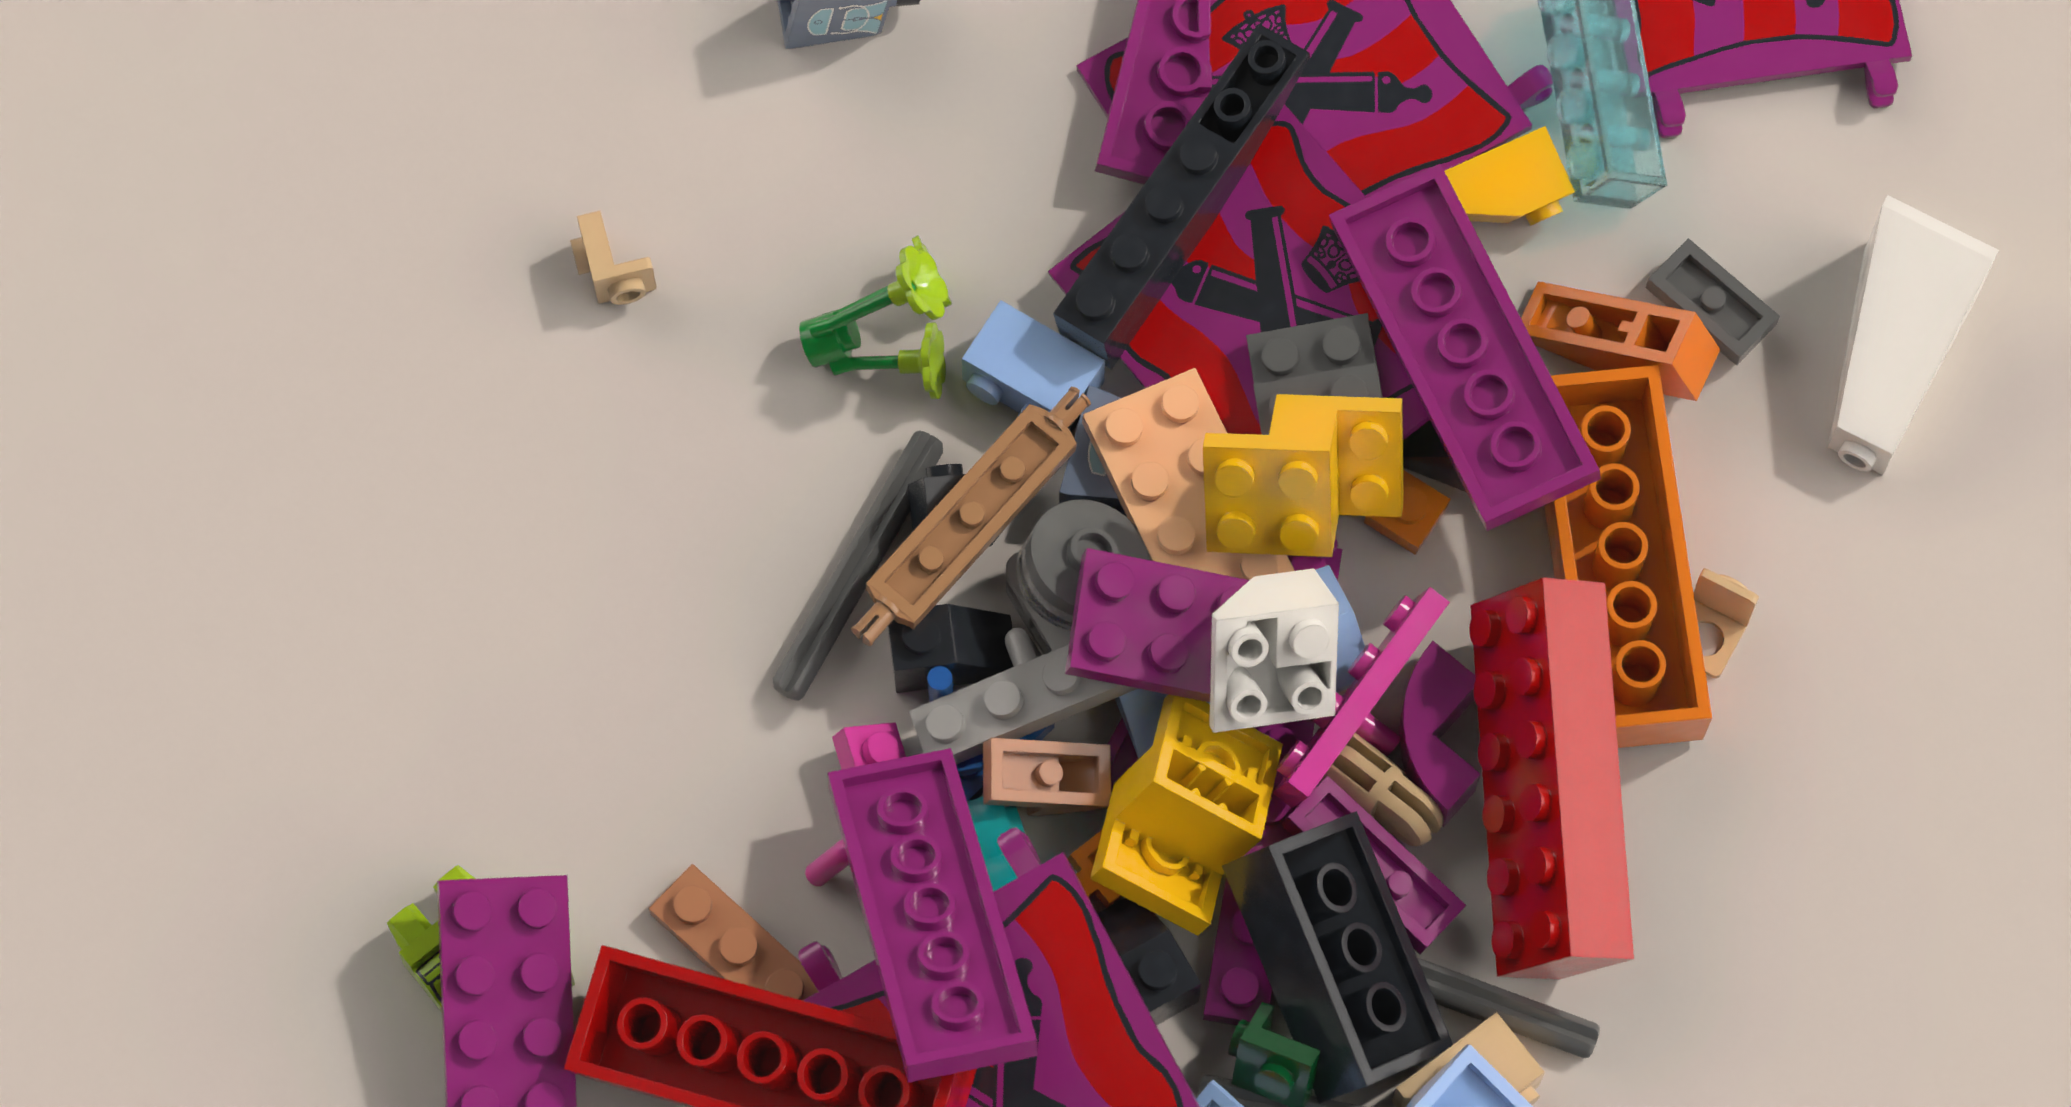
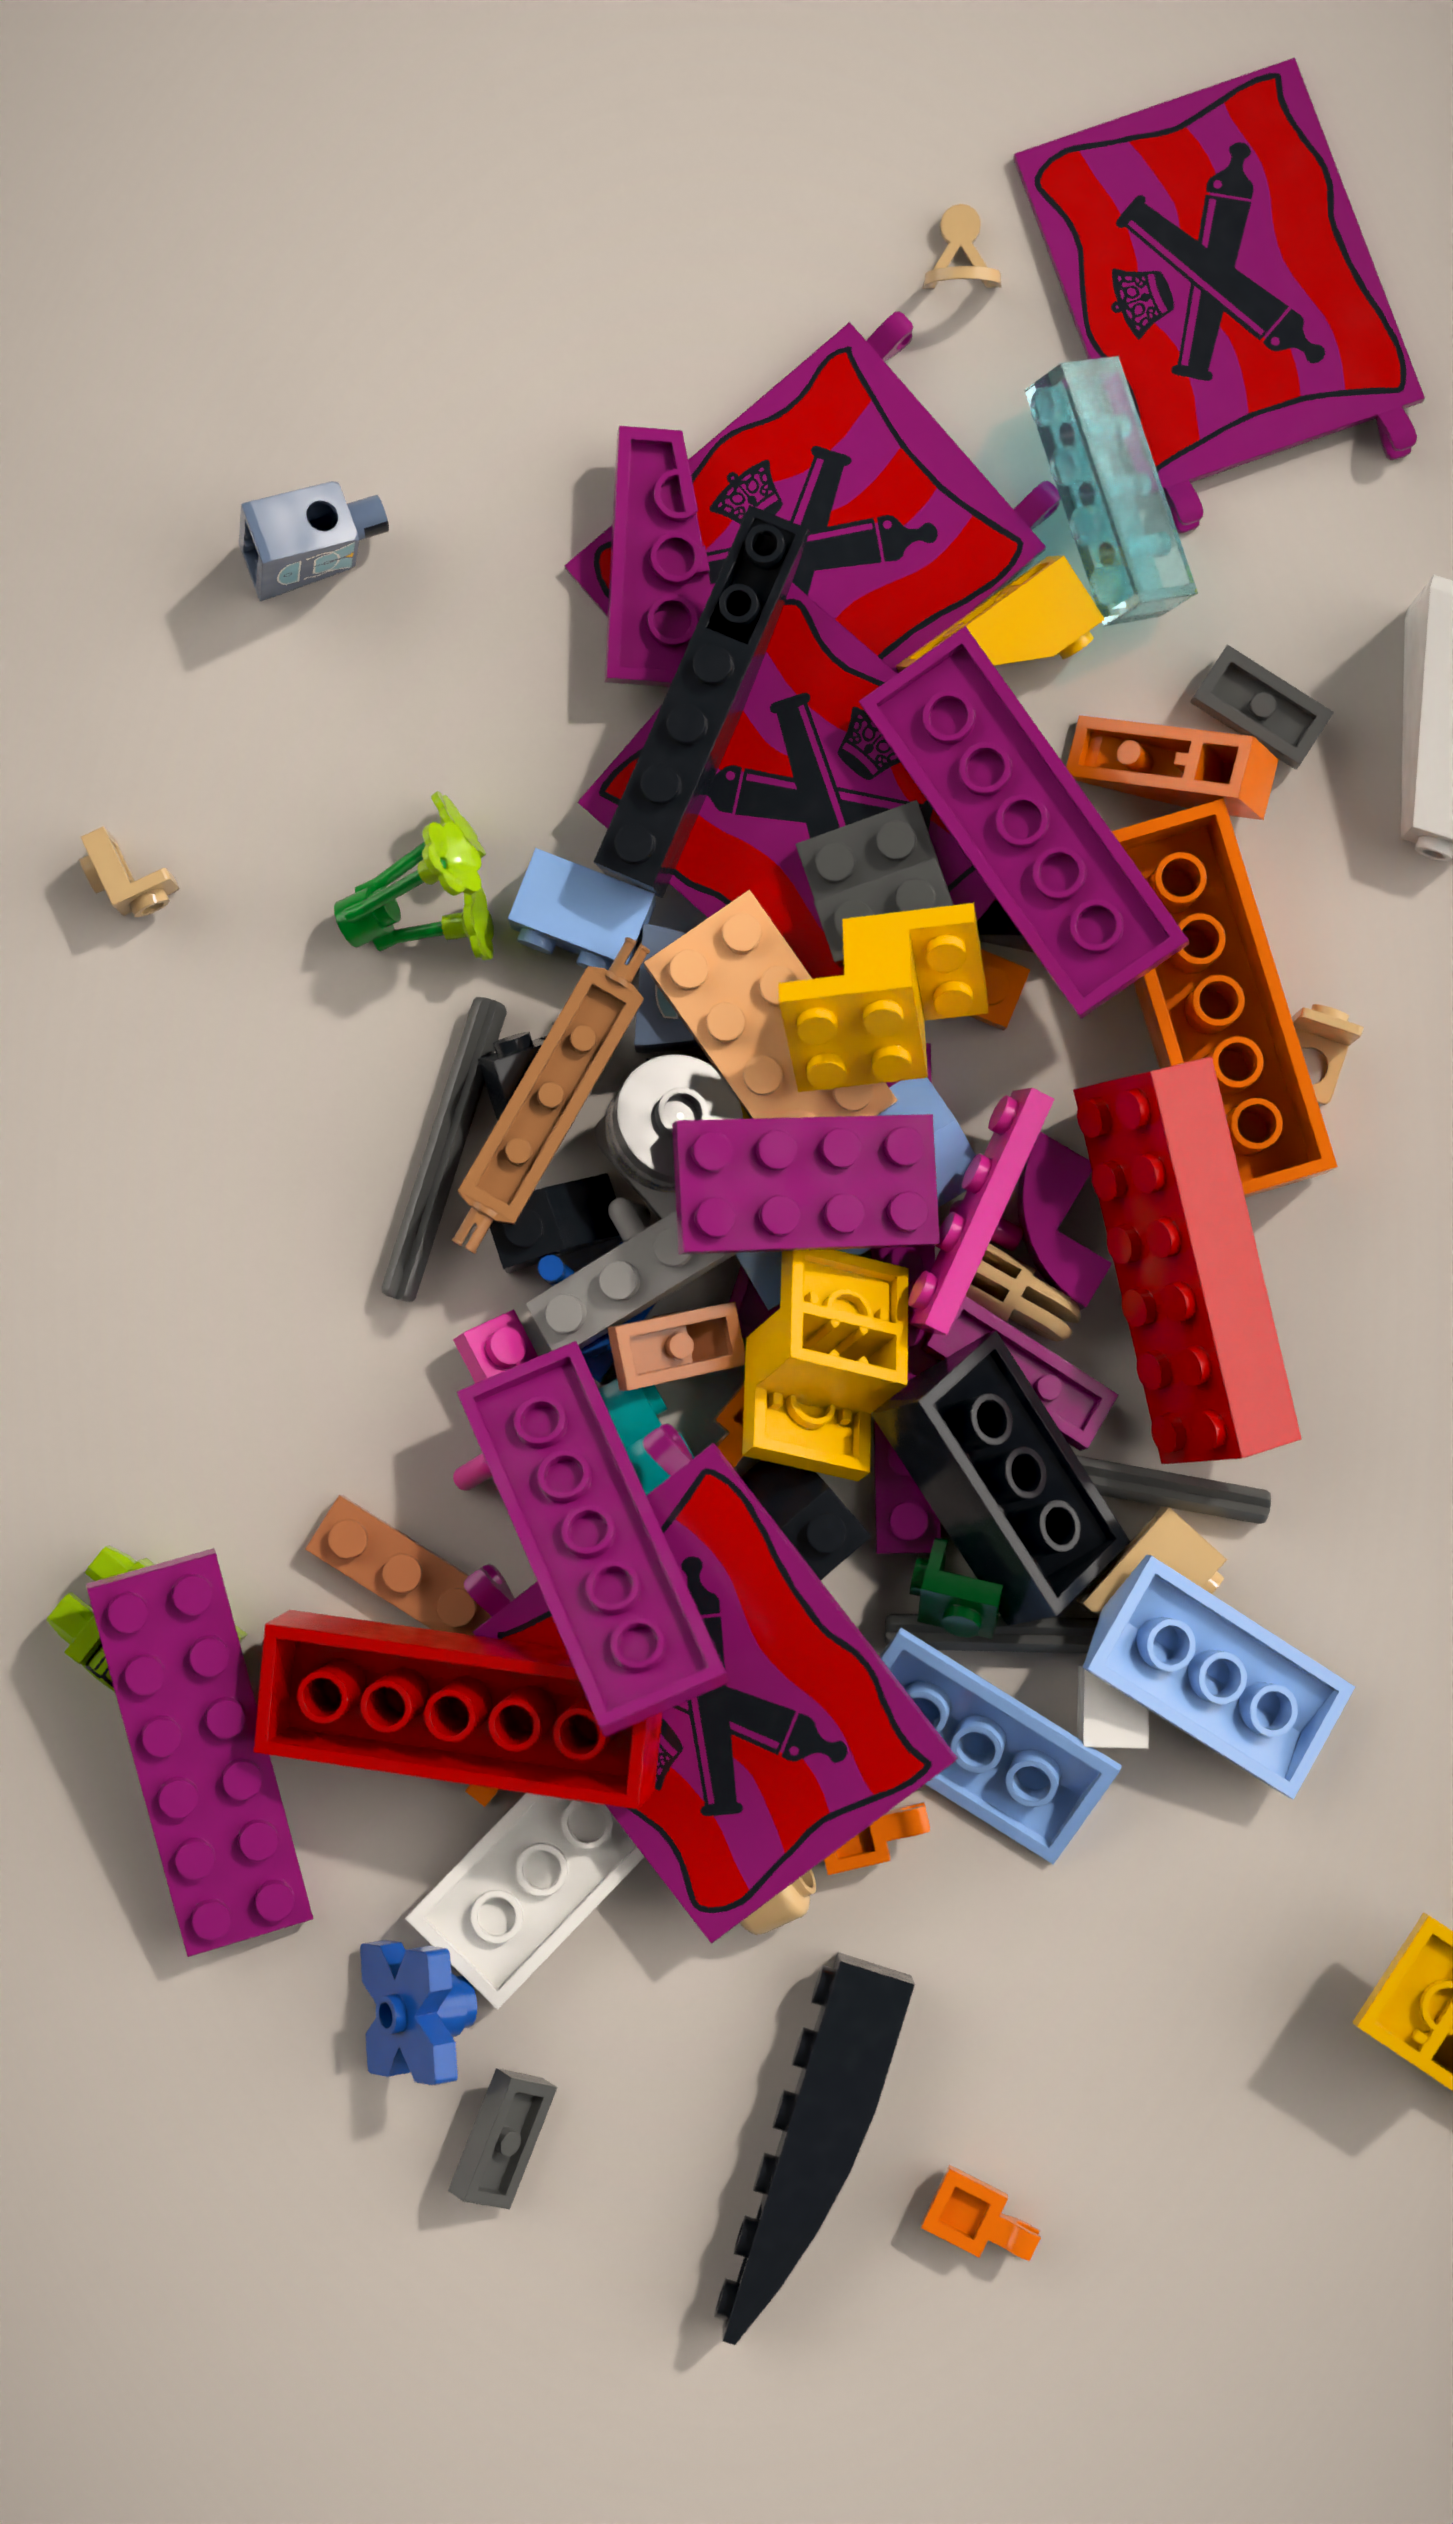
camera: 10 degrees left, 15 degrees up
(1274, 652) = (890, 1198): white slope -> none

